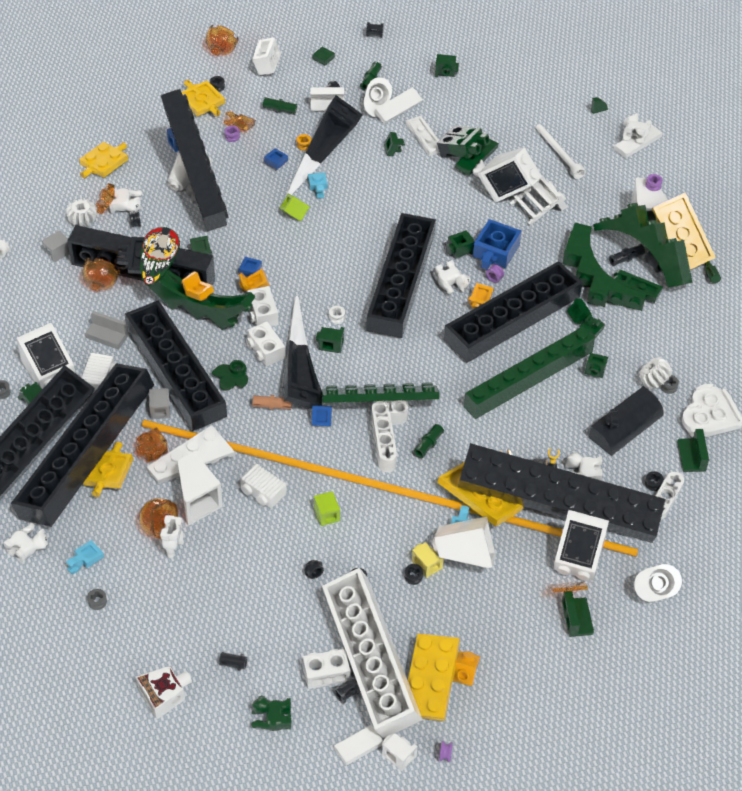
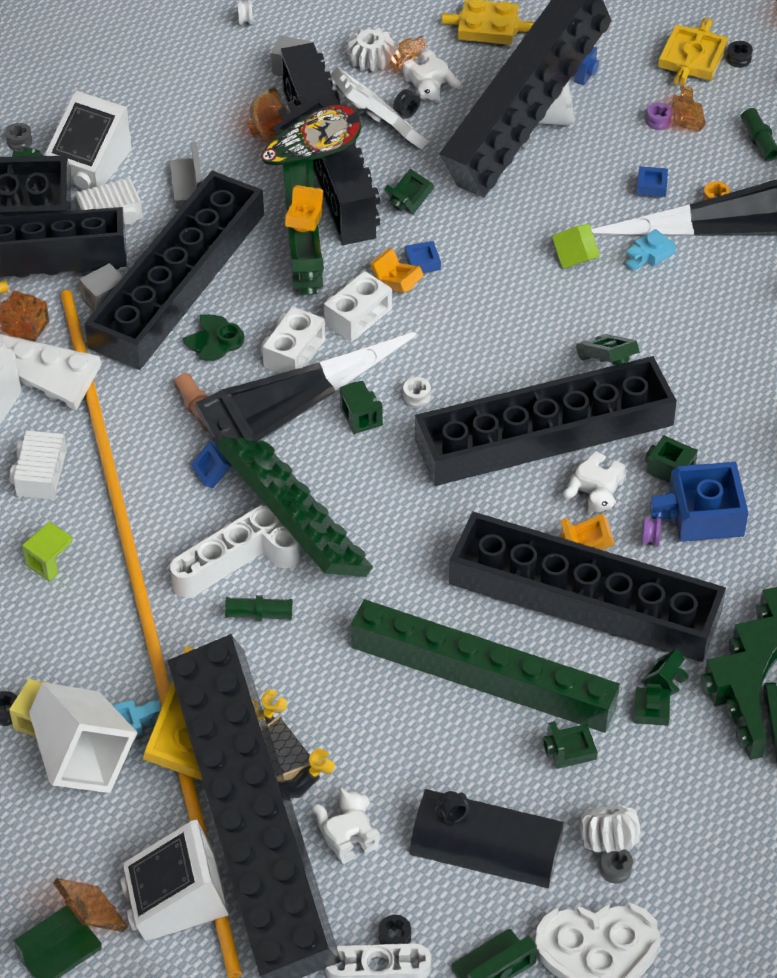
camera: 60 degrees right, 0 degrees up
(131, 228) = (376, 108): none -> white wing
(378, 227) = (608, 348): none -> dark green plate

